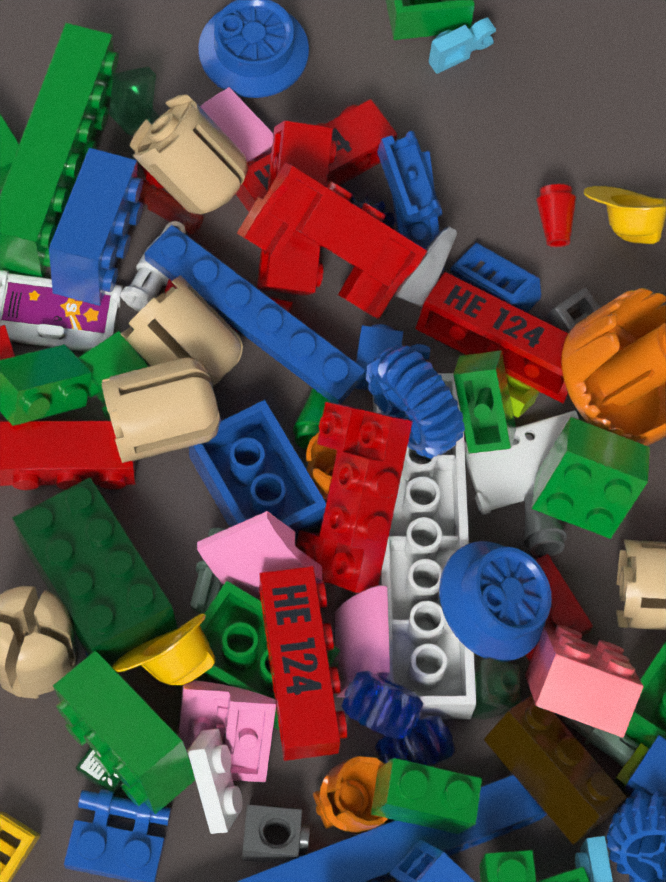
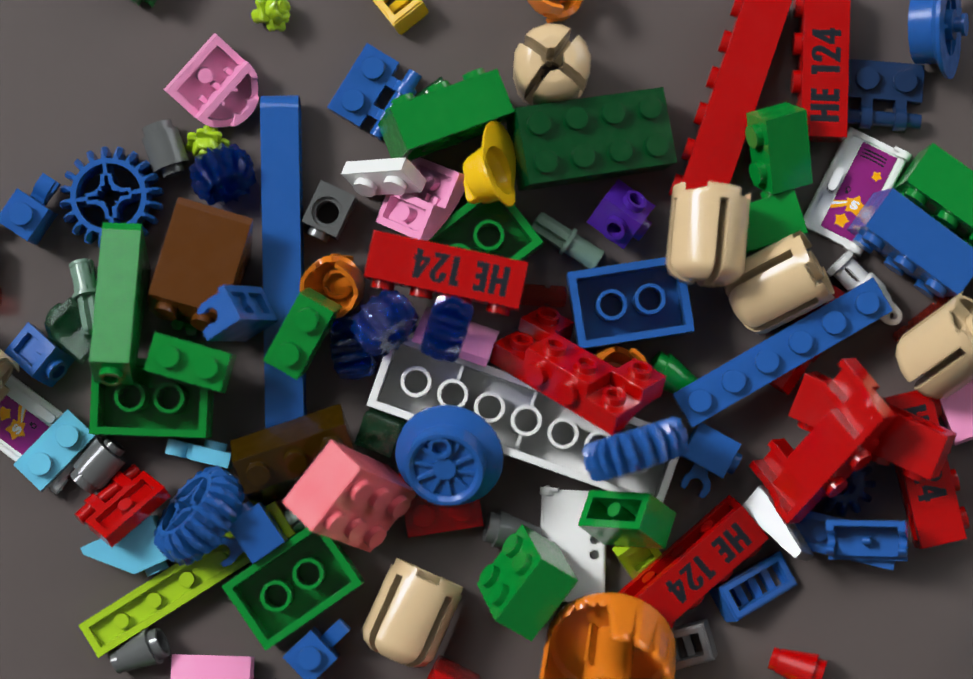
camera: 120 degrees right, 20 degrees up
(164, 521) = (622, 215): none -> dark purple brick
(253, 548) = (551, 273): bright pink slope -> none
(364, 629) = (446, 328): none -> clear blue gear

